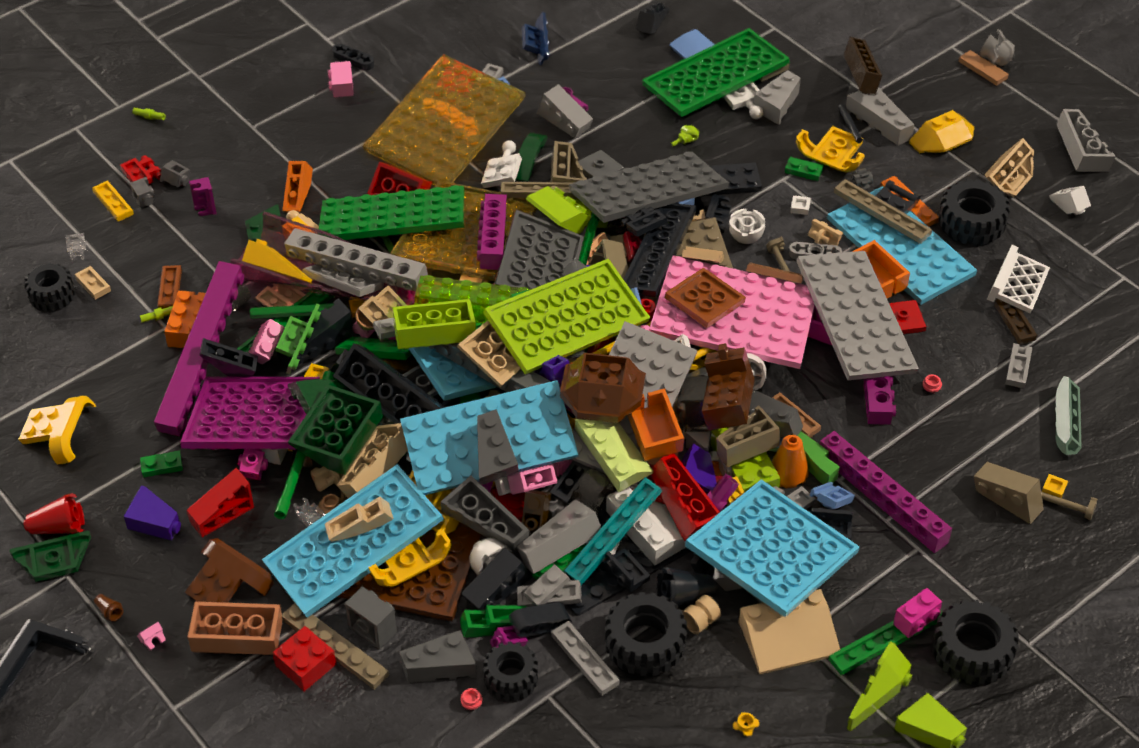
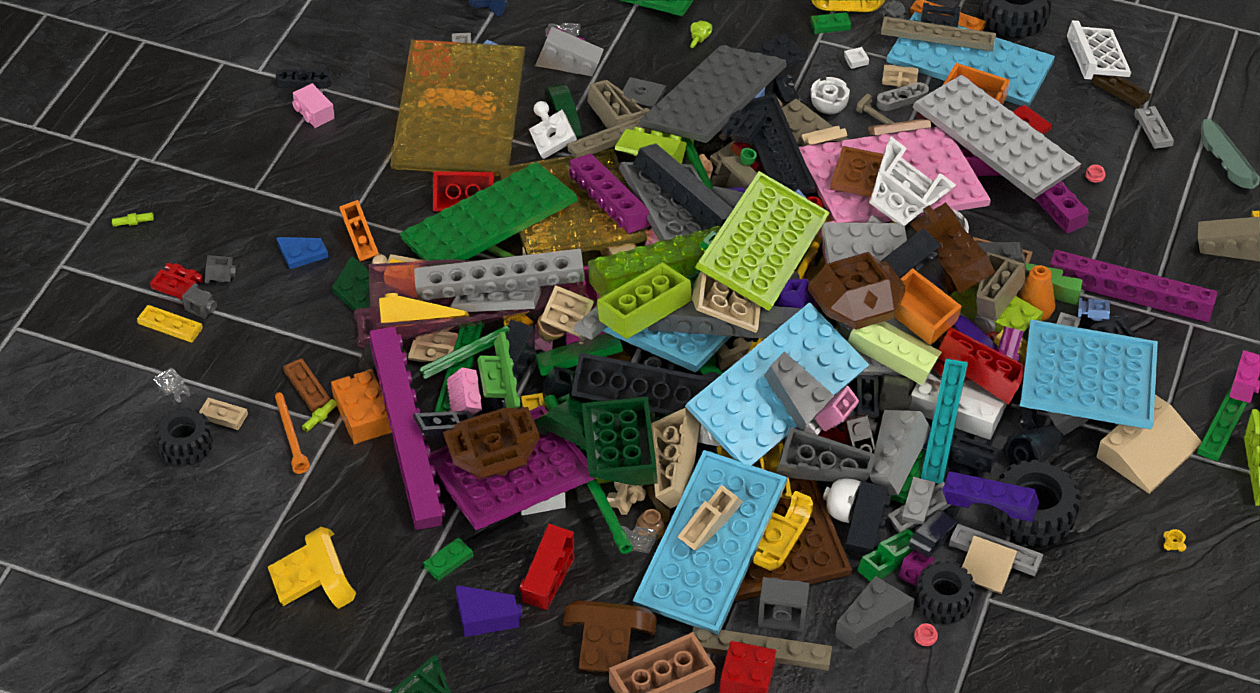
camera: 30 degrees left, 0 degrees up
(57, 517) = (391, 658): red cone -> none
(115, 342) = (299, 462): none -> orange piece
(202, 196) = (274, 277): magenta hinge -> none
(242, 386) = (493, 442): none -> reddish brown piece
(247, 185) = (301, 250): none -> blue wing
(252, 463) = (545, 513): dark pink brick -> none
(548, 242) = (682, 186): none -> black brick
(565, 666) = (989, 564): none -> tan tile
(581, 93) = (570, 28): none -> clear plate
(605, 614) = (1012, 499): none -> dark purple arch
(627, 246) = (747, 156): none -> green hinge
(677, 378) = (913, 253): none -> black brick
(701, 614) = (1068, 458): tan wheel -> none
(720, 319) = (902, 189): none -> white wedge

